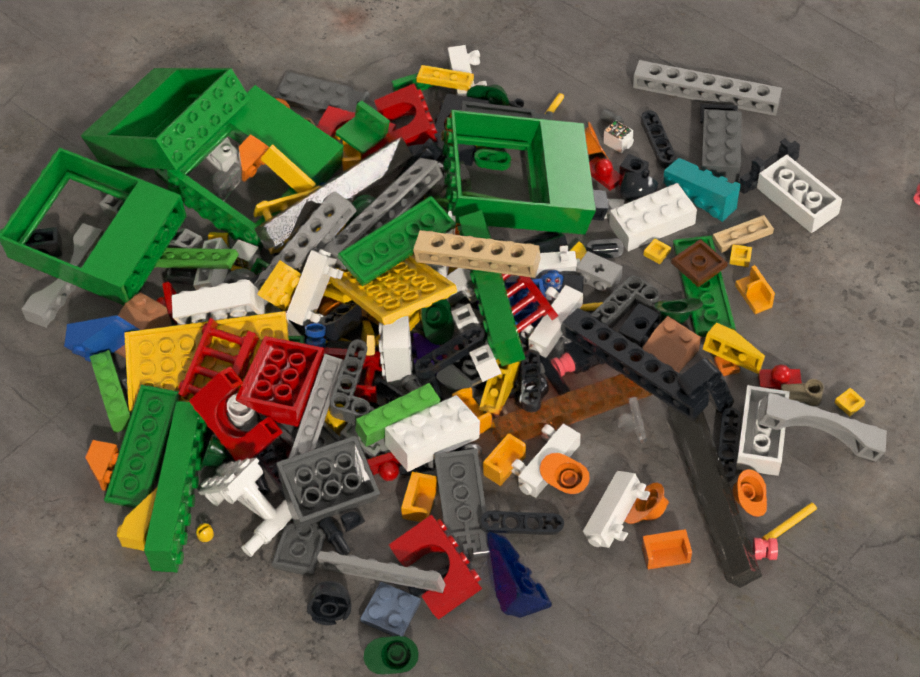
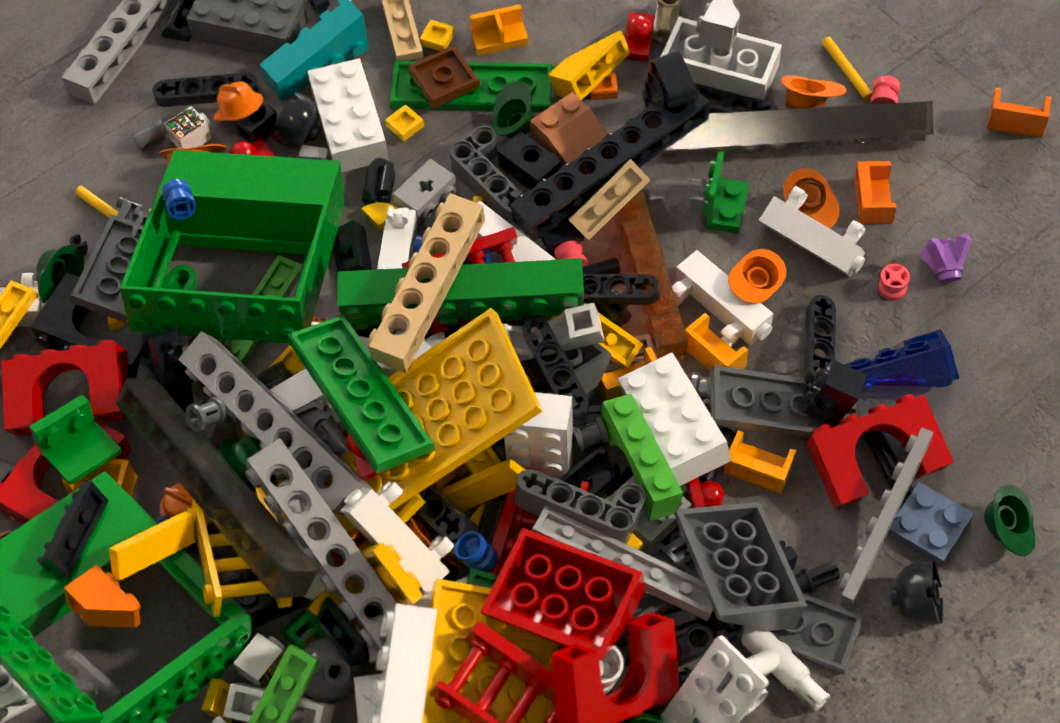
camera: 80 degrees left, 5 degrees up
(294, 135) = (74, 530): none -> black plate
(383, 179) = (206, 414): none -> dark grey bush
(466, 523) = (833, 393): none -> black brick
(531, 127) = (178, 199): none -> blue wheel
(585, 564) = (890, 275): none -> coral wheel
(602, 368) = (609, 199): none -> tan plate
(613, 600) = (947, 257): none -> medium lavender rock
(636, 447) = (723, 199): none -> green bracket
(642, 152) = (236, 101): none -> orange piece
(771, 646) = (1018, 118): none -> orange panel

